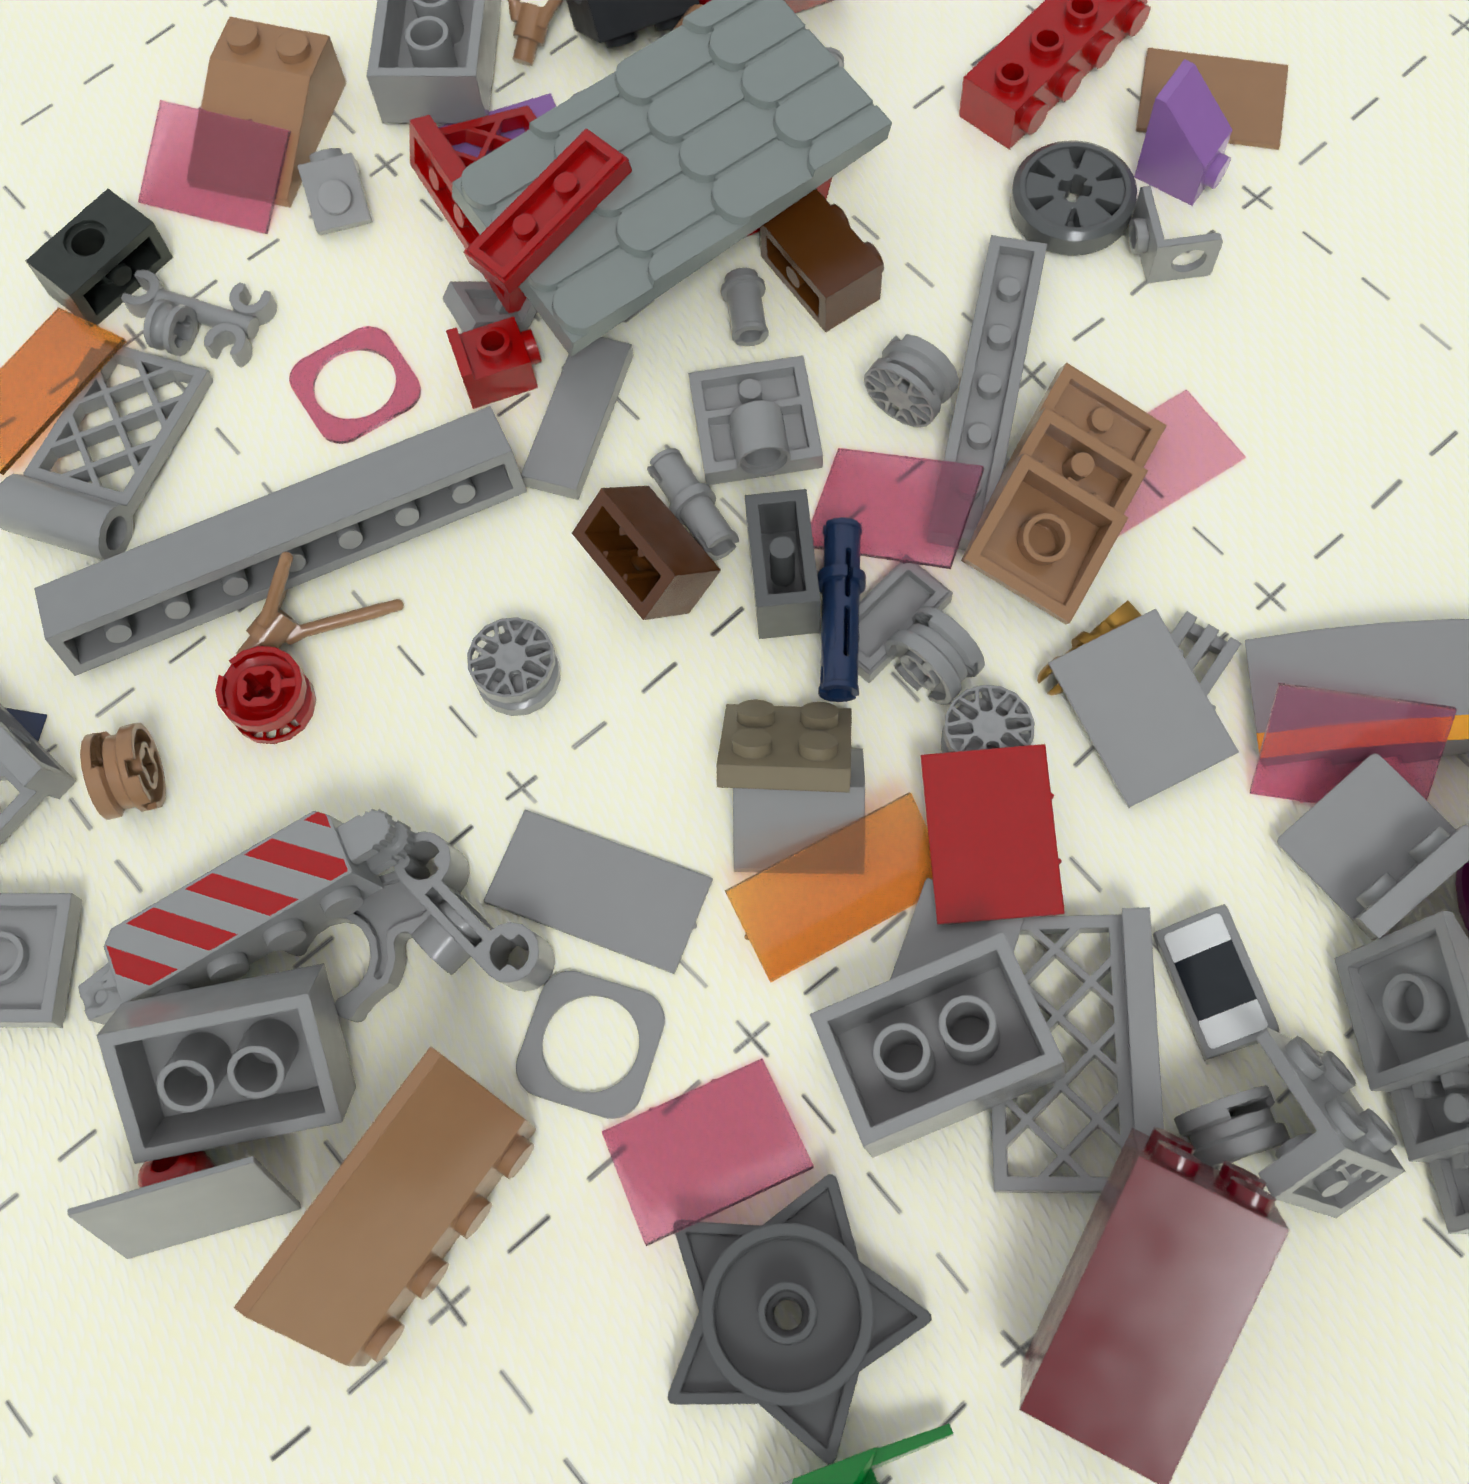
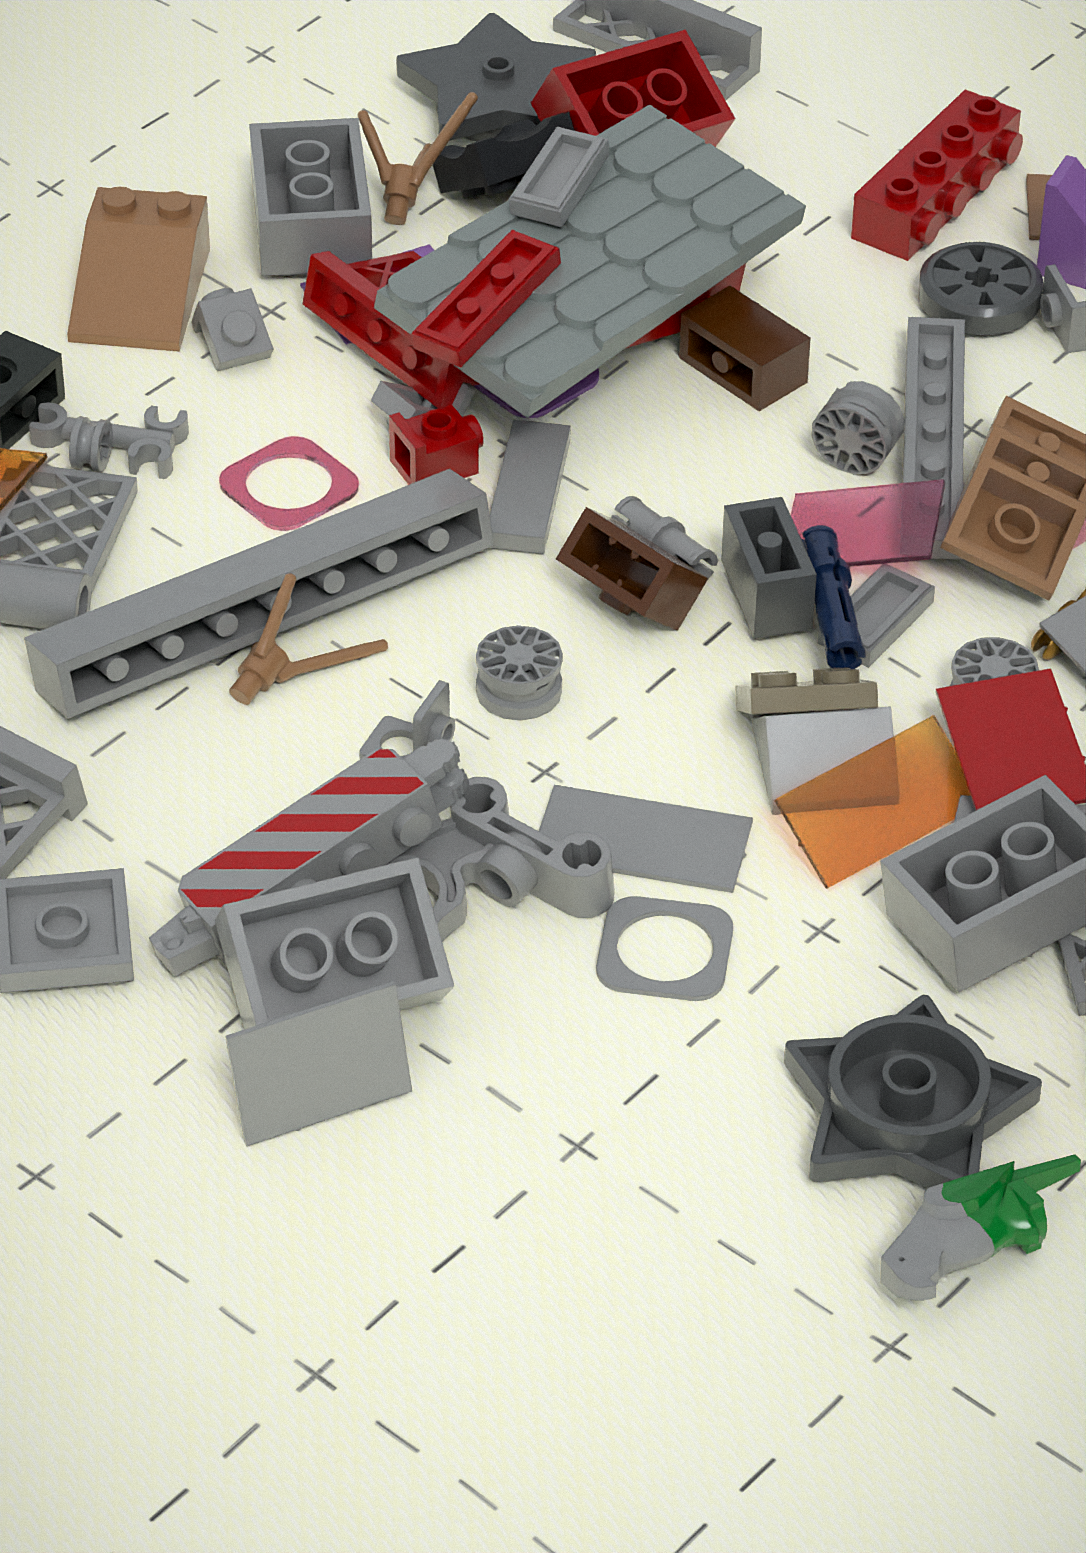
camera: 15 degrees left, 25 degrees down
(123, 771) = (151, 772): medium nougat wheel -> none
(214, 166) = (101, 315): clear pink window -> none
(265, 693) = (274, 708): red wheel -> none
(390, 1216) = (526, 1032): medium nougat slope -> none
(401, 748) = (429, 722): none -> light grey bracket
(647, 61) = (559, 176): none -> light grey tile
(706, 1151) = (799, 998): clear pink window -> none
(744, 294) = (673, 381): light grey pin -> none
(755, 420) = (705, 469): light grey plate -> none
(935, 654) = (930, 622): light grey wheel -> none

